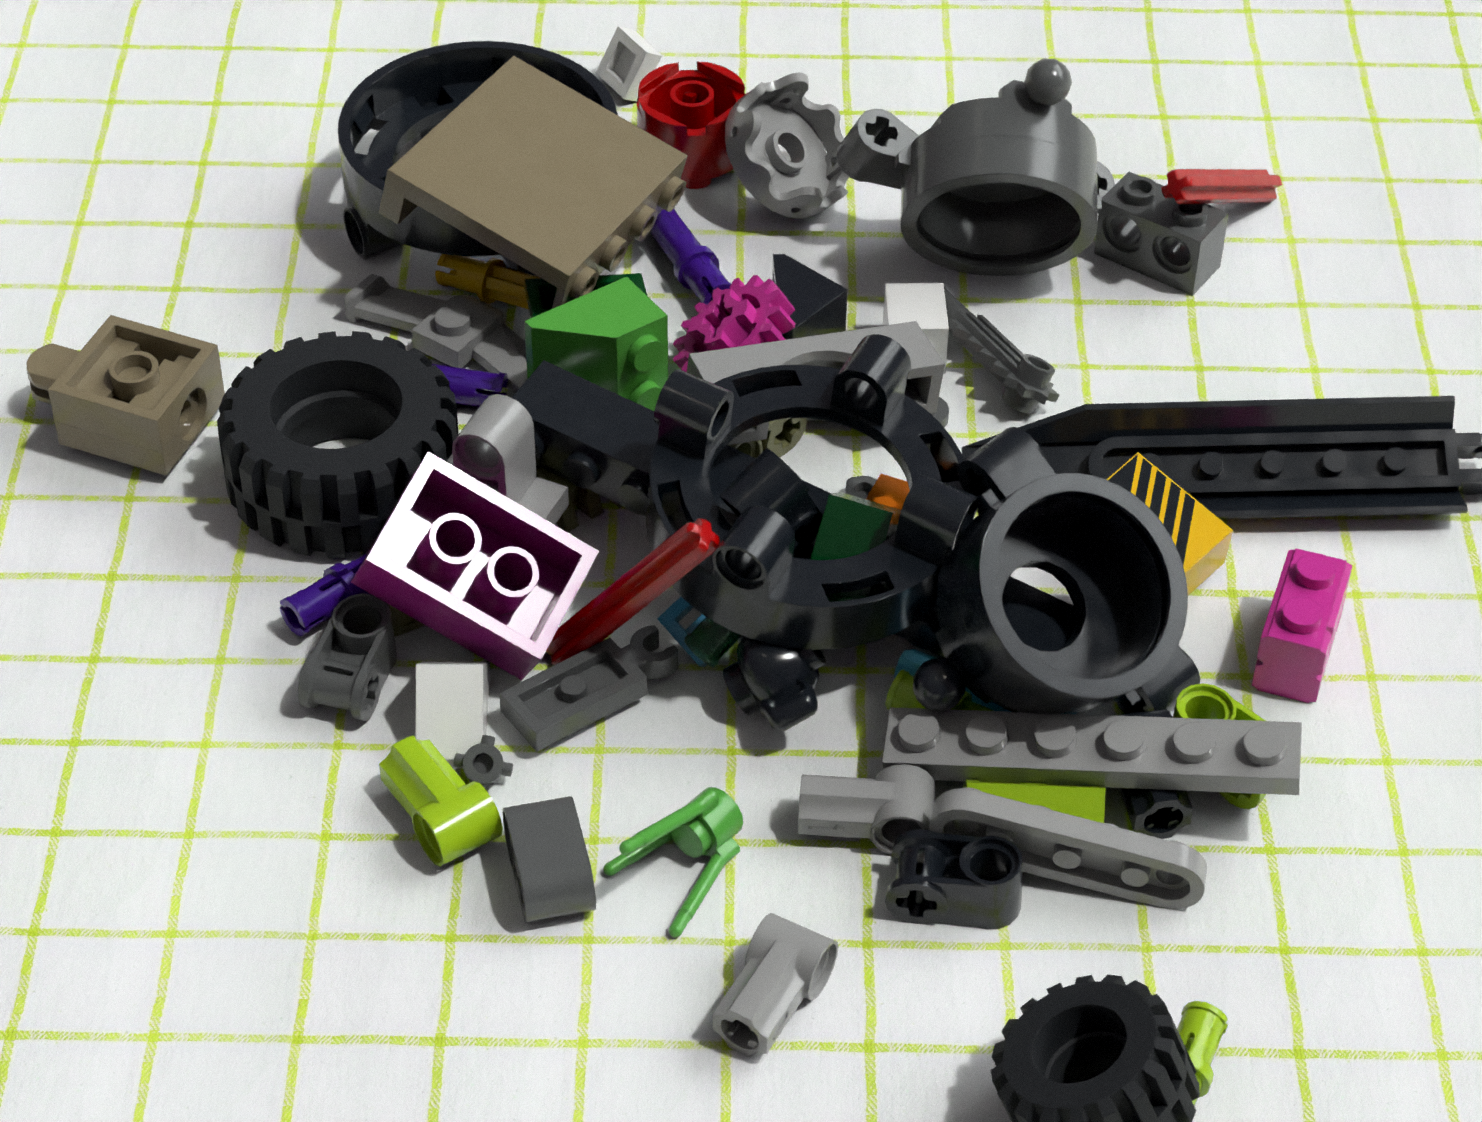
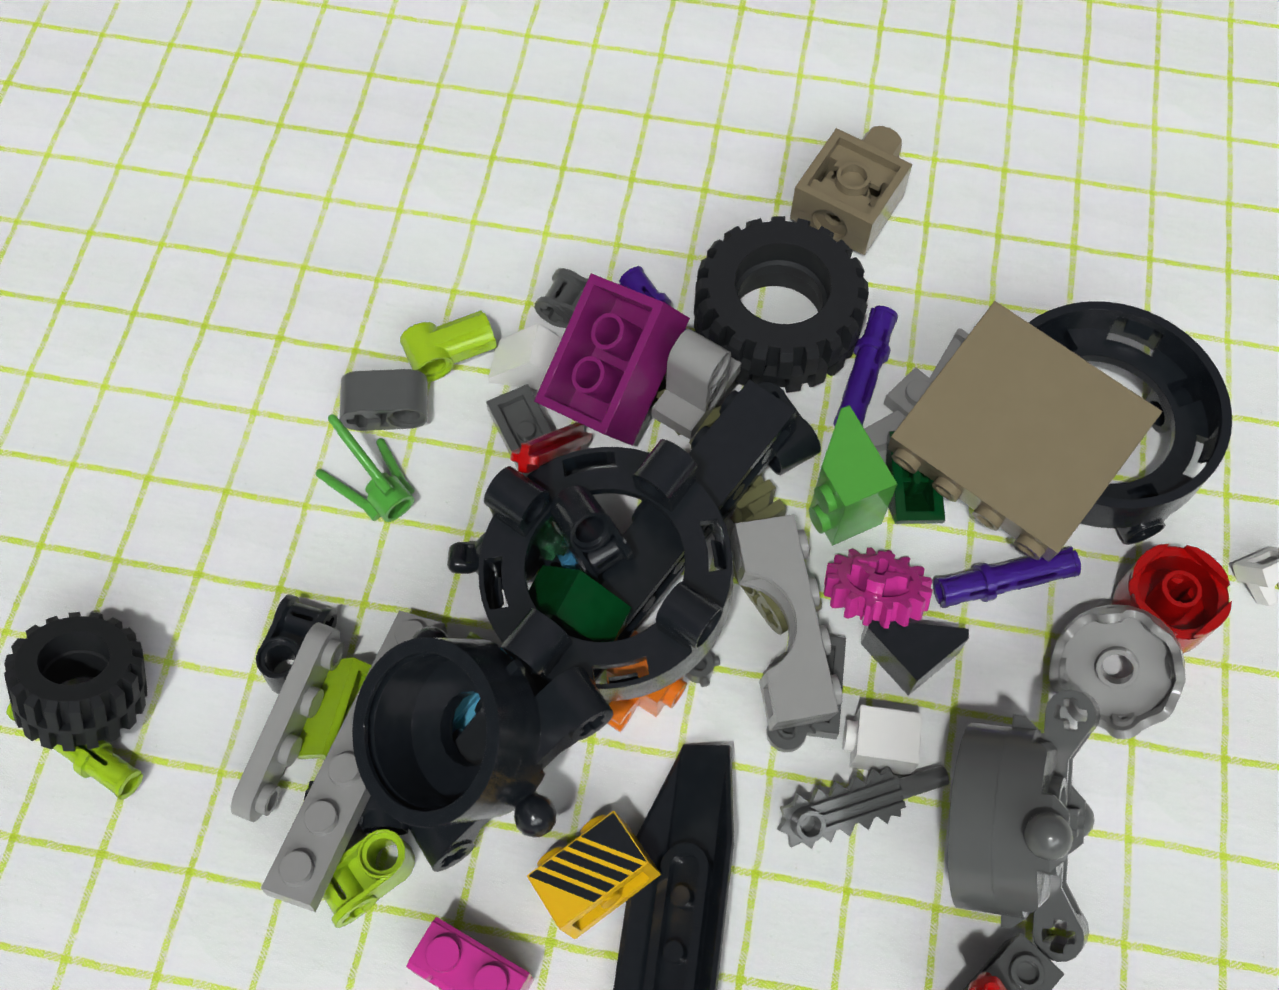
camera: 100 degrees right, 20 degrees up
(483, 762) = (477, 374): dark grey piece -> none
(779, 971) = (251, 521): light grey piece -> none
(868, 808) = (372, 608): light grey piece -> none

